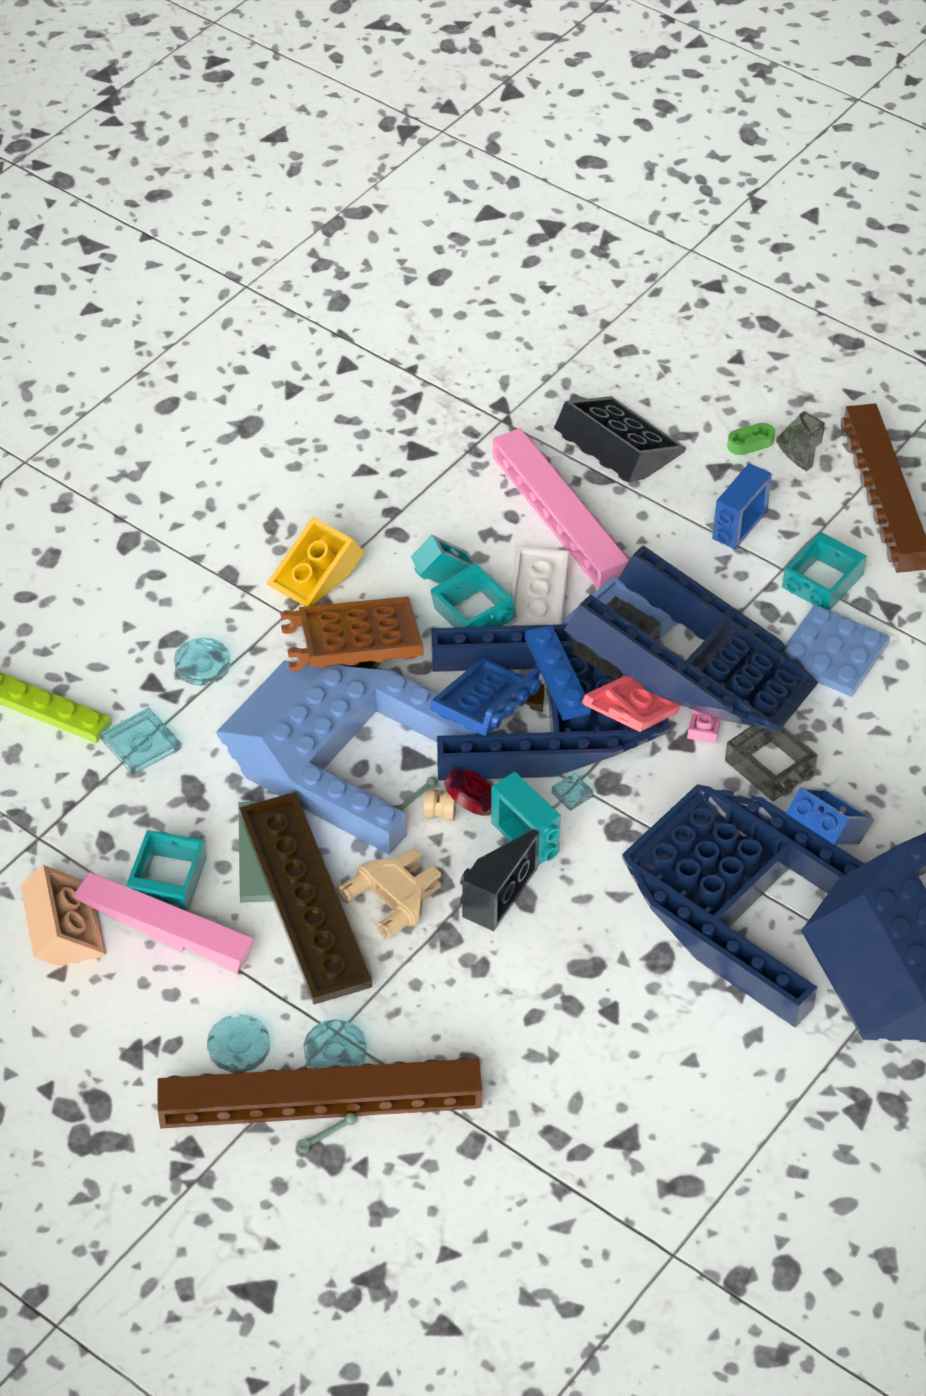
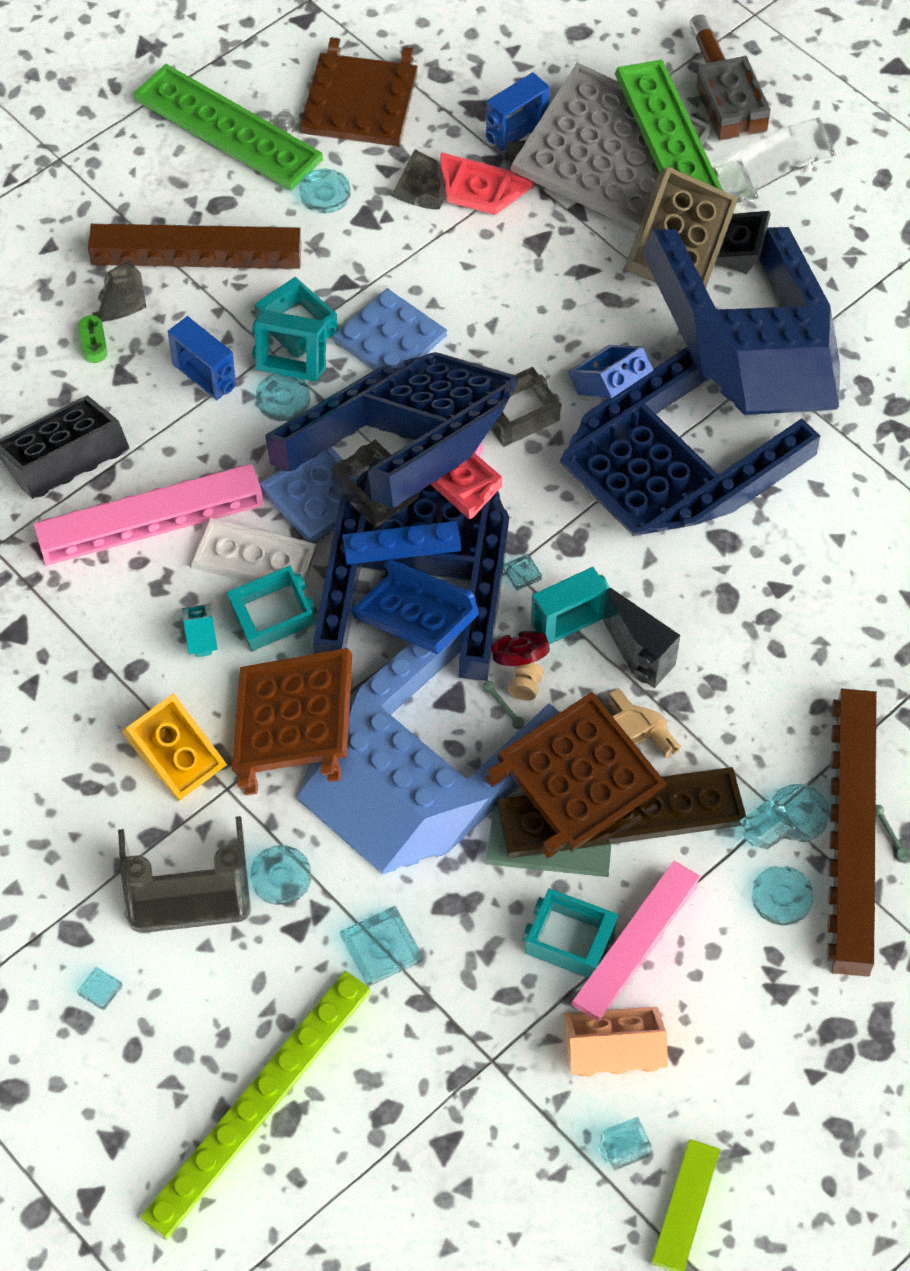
camera: 80 degrees left, 10 degrees up
(77, 564) = (100, 988): none -> clear light blue tile
(186, 617) = (187, 897): none -> clear smoke windscreen
(306, 1012) = (767, 825): none -> clear light blue brick
(326, 841) = (579, 773): none -> reddish brown plate
(731, 581) = (282, 397): none -> clear light blue tile
(775, 560) = (311, 329): none -> teal window

